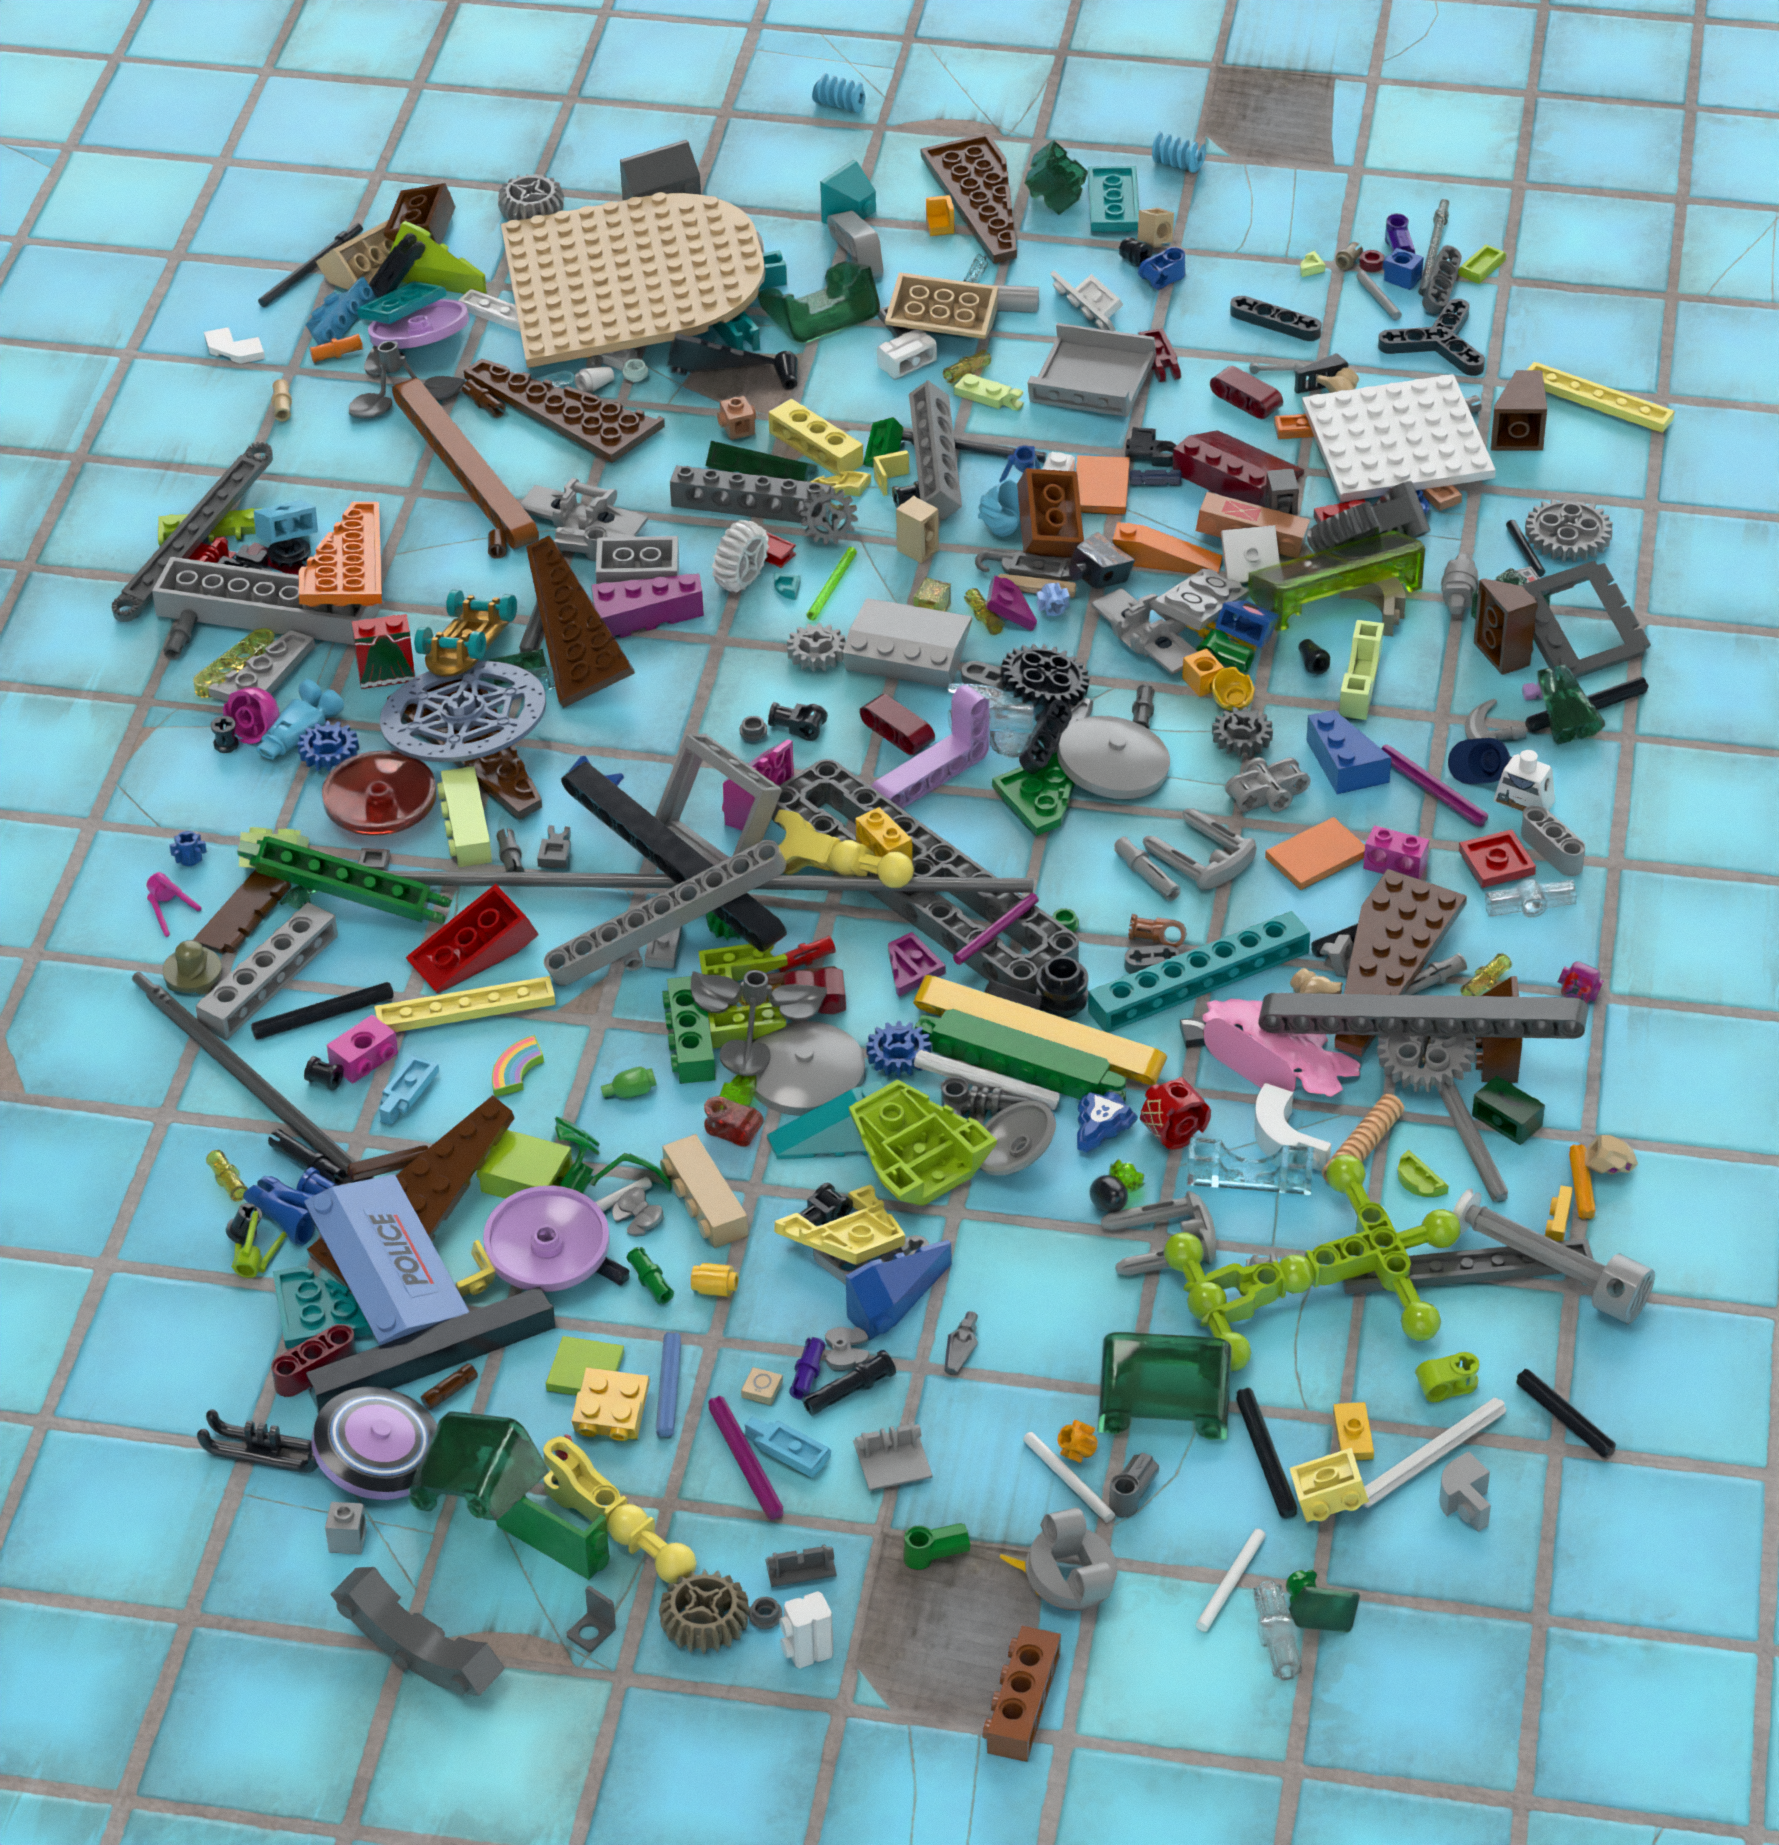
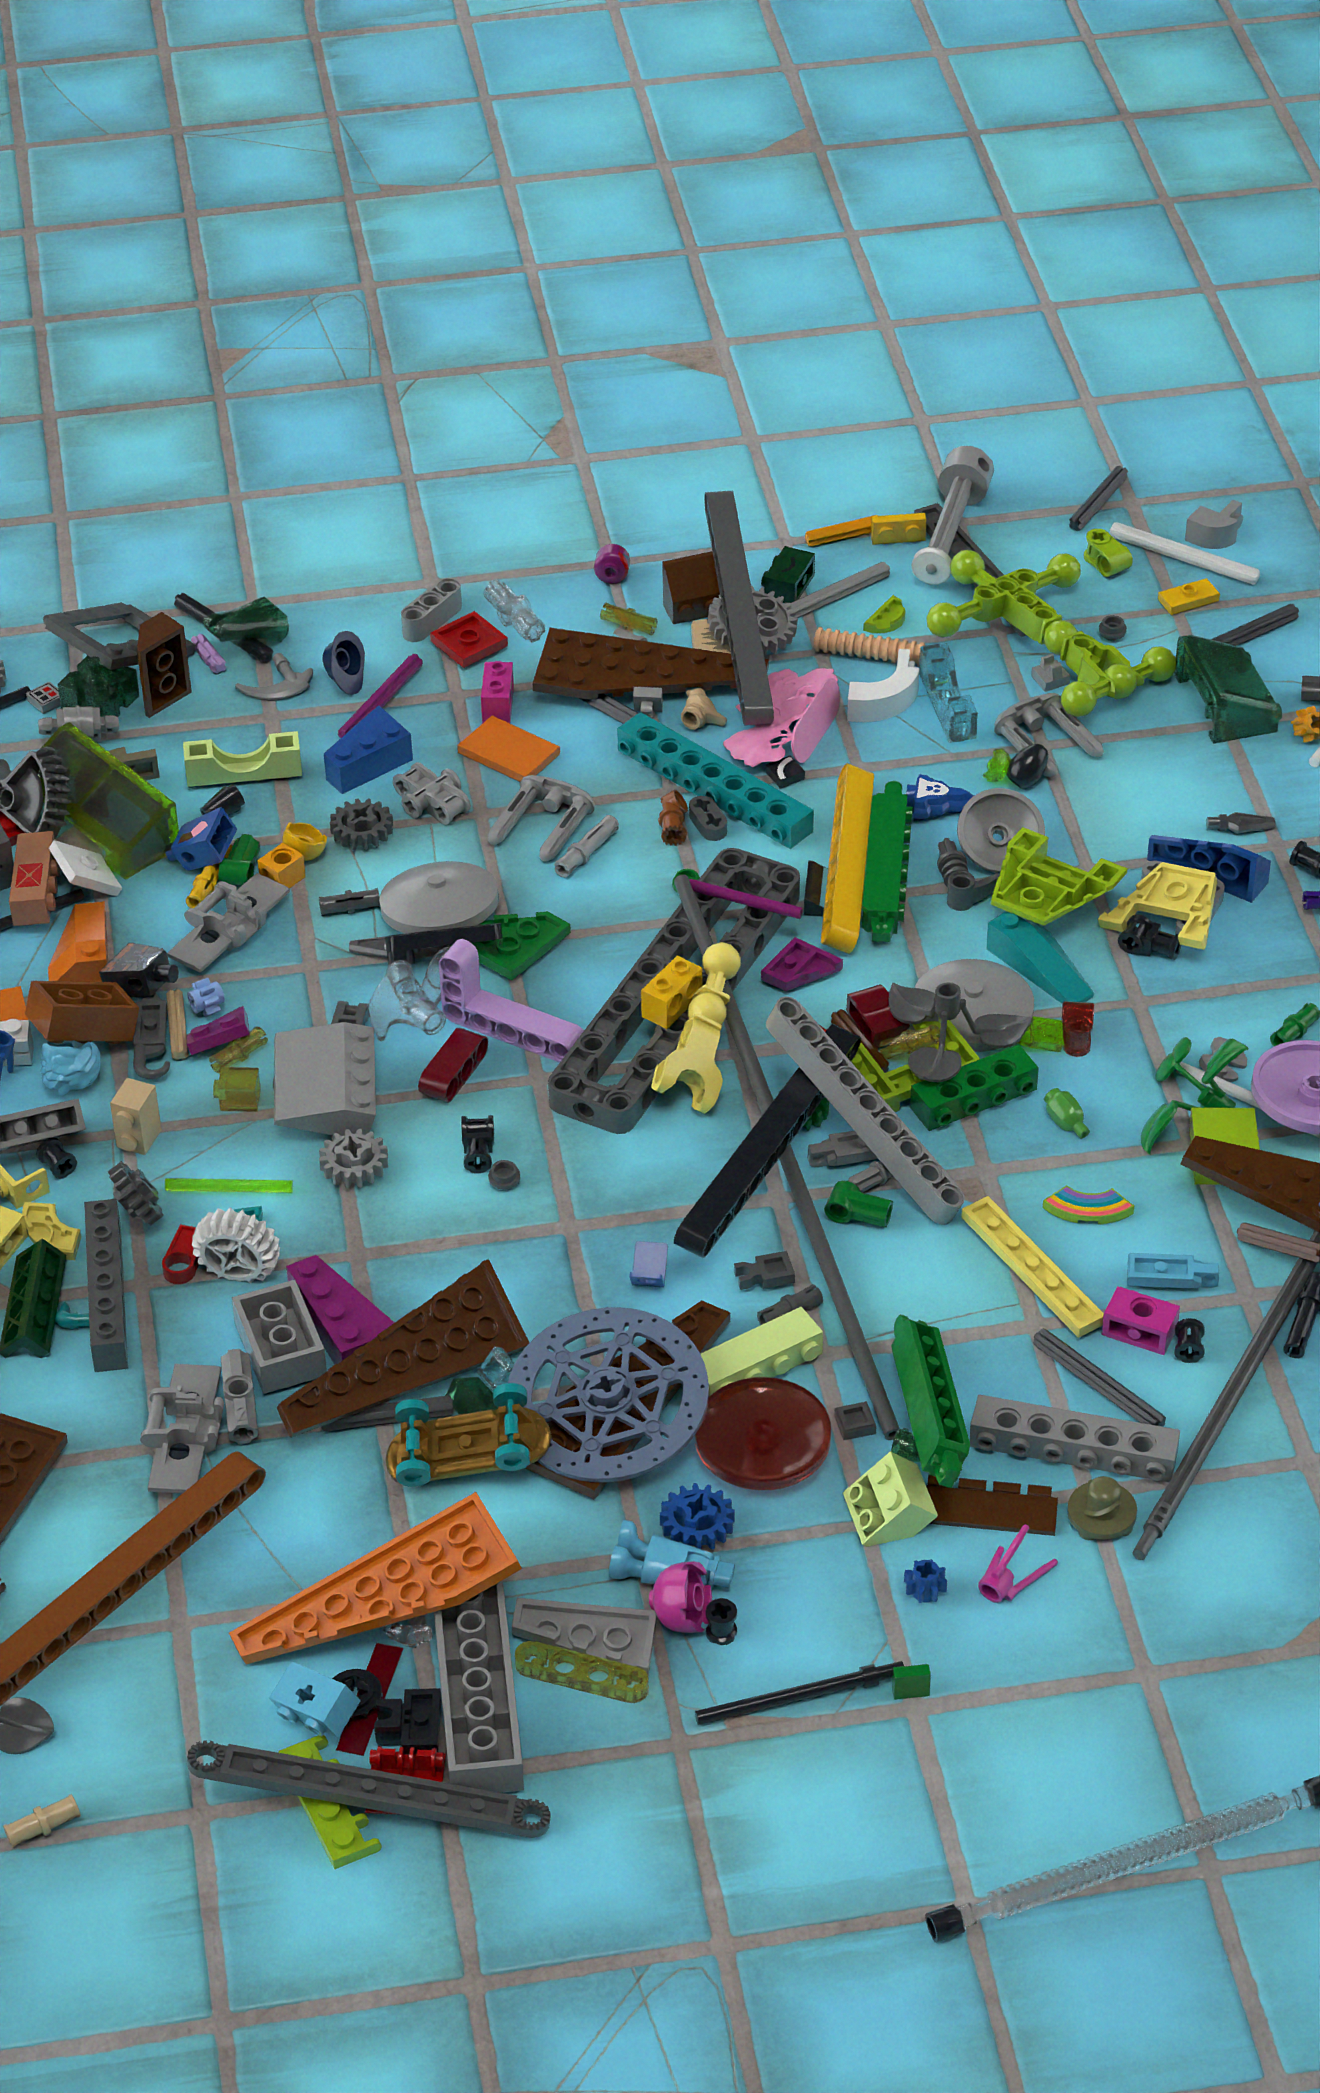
camera: 110 degrees left, 0 degrees up
(104, 815) = (911, 1681): none -> green tile
(130, 798) = (866, 1676): none -> black bar
(180, 634) = (556, 1742): dark grey pin -> none
(383, 651) = (528, 1504): slope -> none
(473, 941) = (942, 1286): red slope -> none
(497, 543) = (266, 1494): reddish brown hinge -> none
(597, 911) = (849, 1203): none -> green piece
(702, 747) = (688, 1052): light grey window -> none
(704, 1191) = (1174, 1017): tan brick -> none
(714, 1279) = (1274, 982): yellow brick -> none
(775, 765) = (611, 1120): dark pink wedge -> none
(842, 1355) = (1285, 893): light grey piece -> none
(898, 1048) = (920, 941): blue gear -> none
(984, 1078) = (931, 873): white axle -> none
(1044, 676) = (316, 980): black gear -> none
(1062, 986) = (793, 842): black piece -> none
(1174, 1113) = (915, 742): red brick -> none
(1199, 598) = (175, 883): light grey piece -> none
(1319, 1345) = (1112, 627): none -> dark grey plate
(1329, 1485) = (1262, 585): light yellow plate -> none
(1526, 783) = (373, 619): white torso -> none
(1610, 1155) = (818, 512): tan rock -> none

